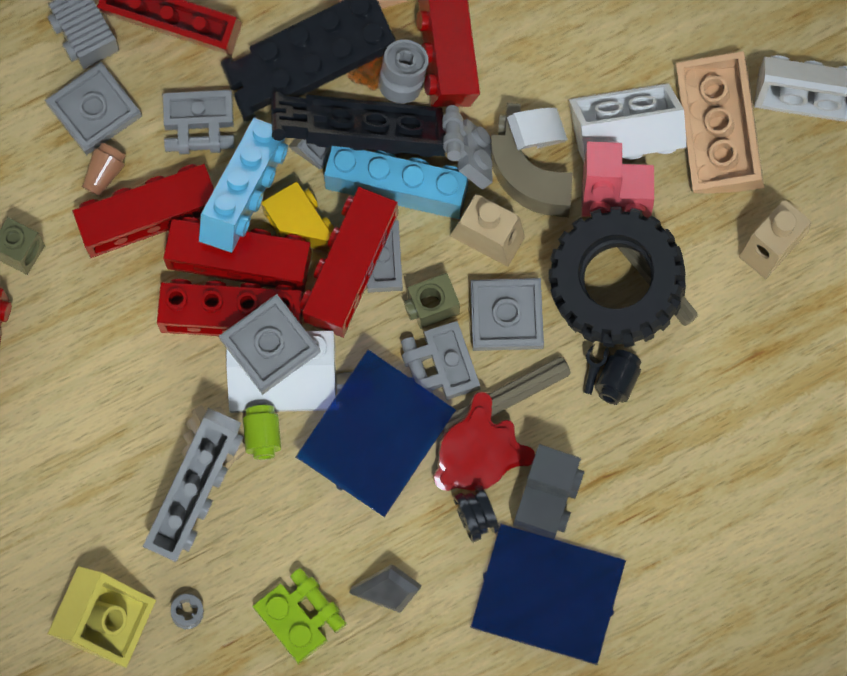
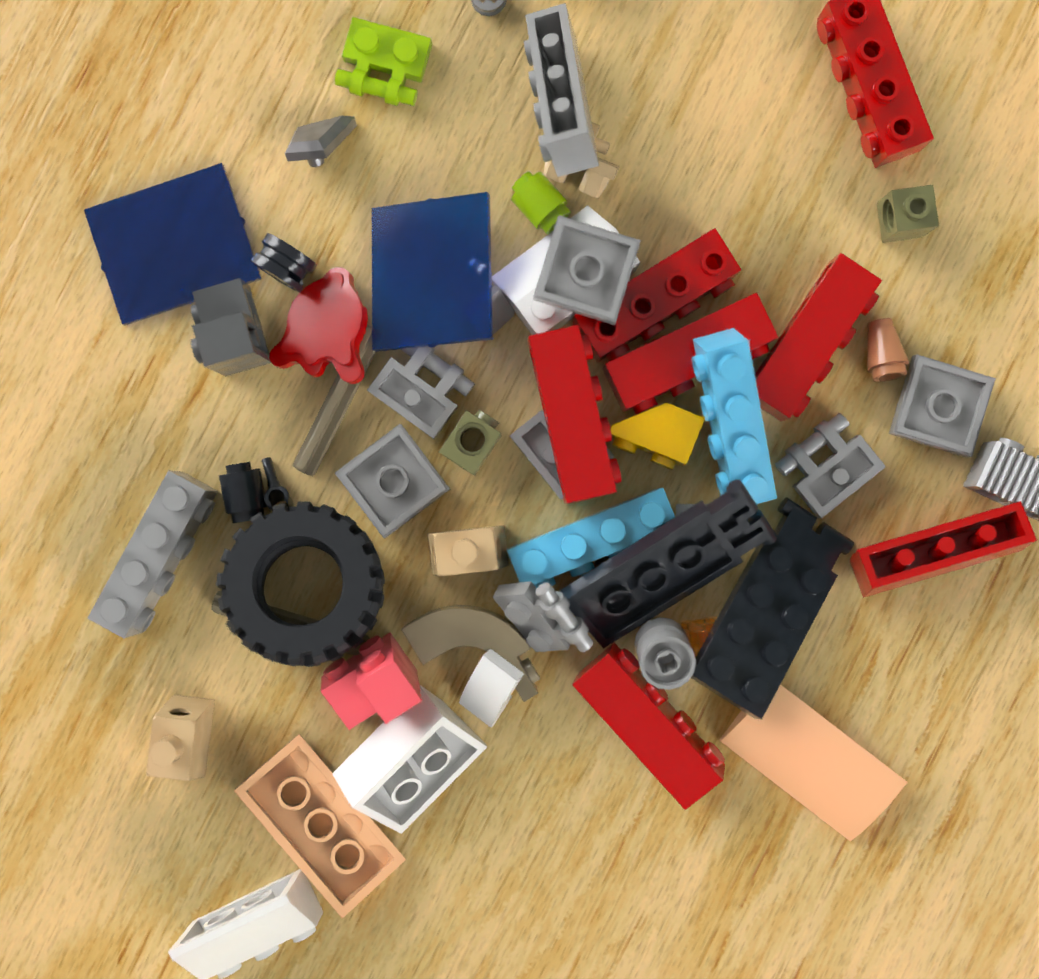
camera: 150 degrees right, 15 degrees up
(710, 376) = (153, 554): none -> light grey brick

